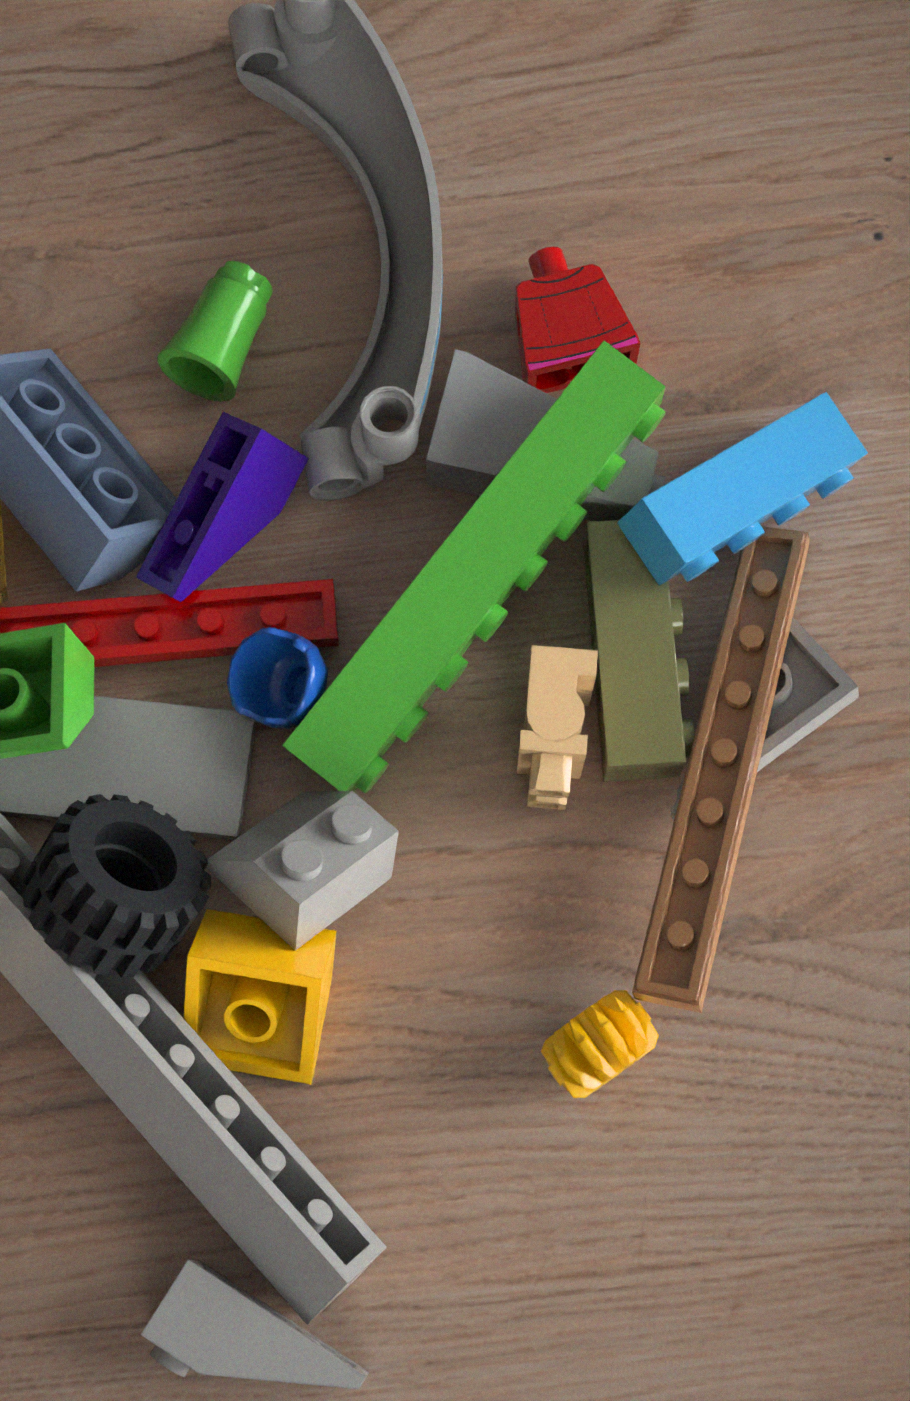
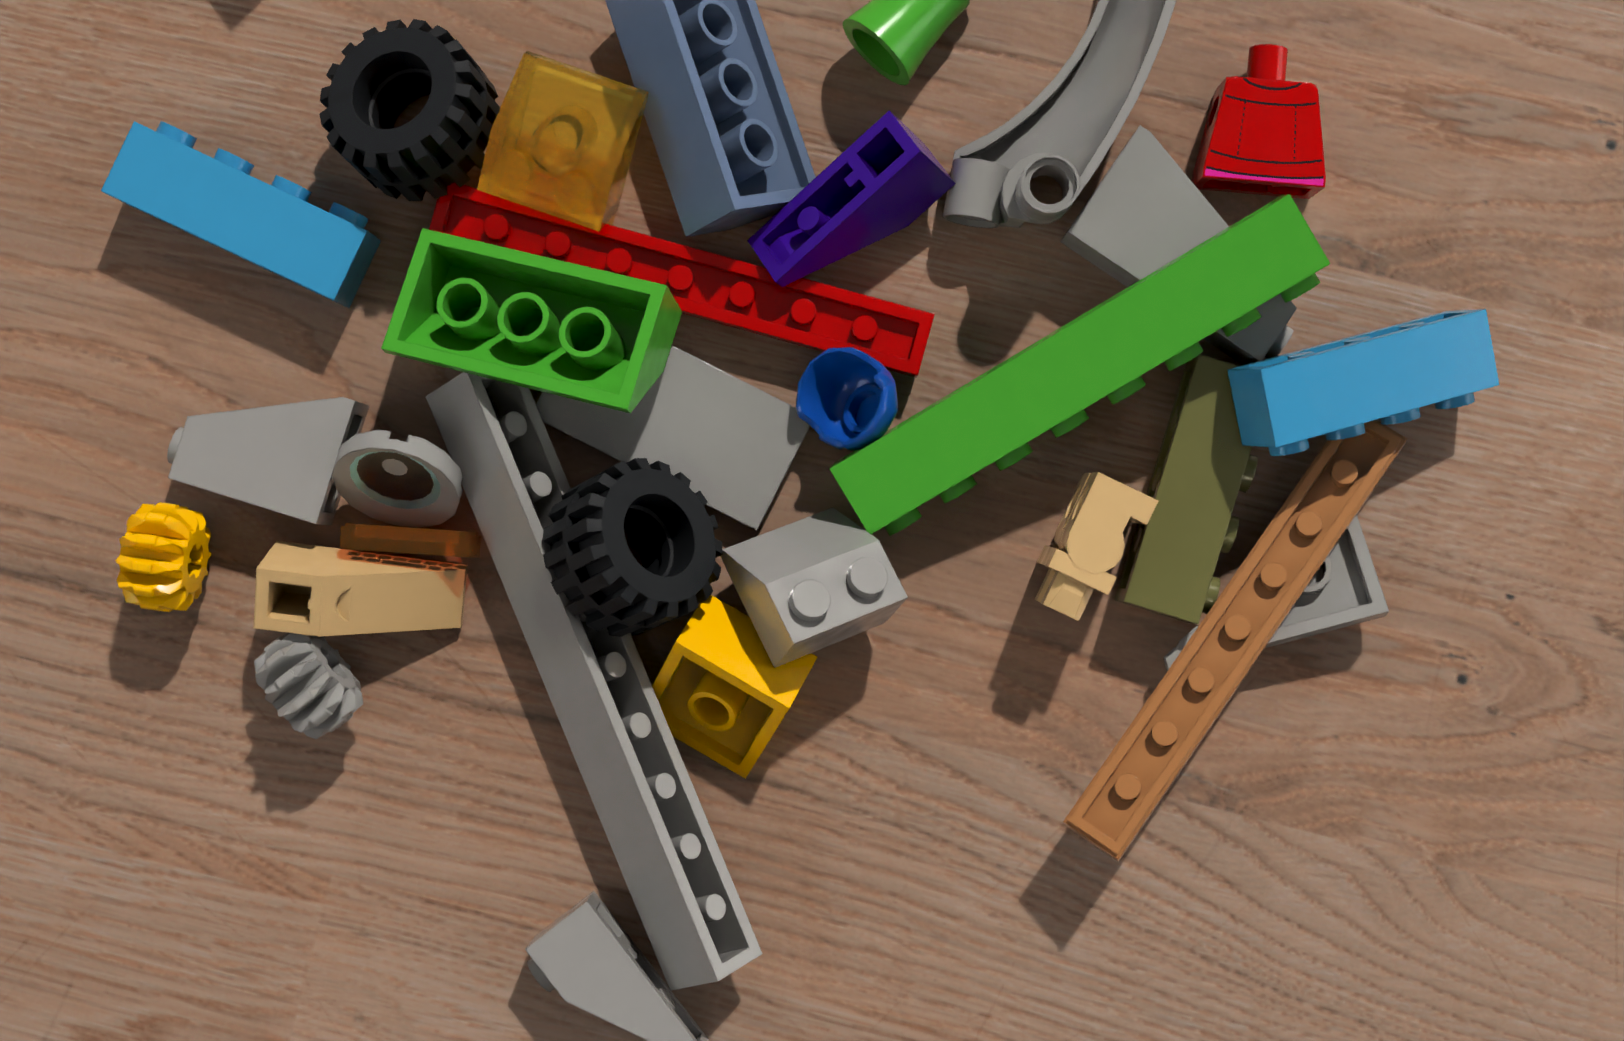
camera: 20 degrees right, 15 degrees up
(599, 1043) = (1016, 850): yellow gear -> none

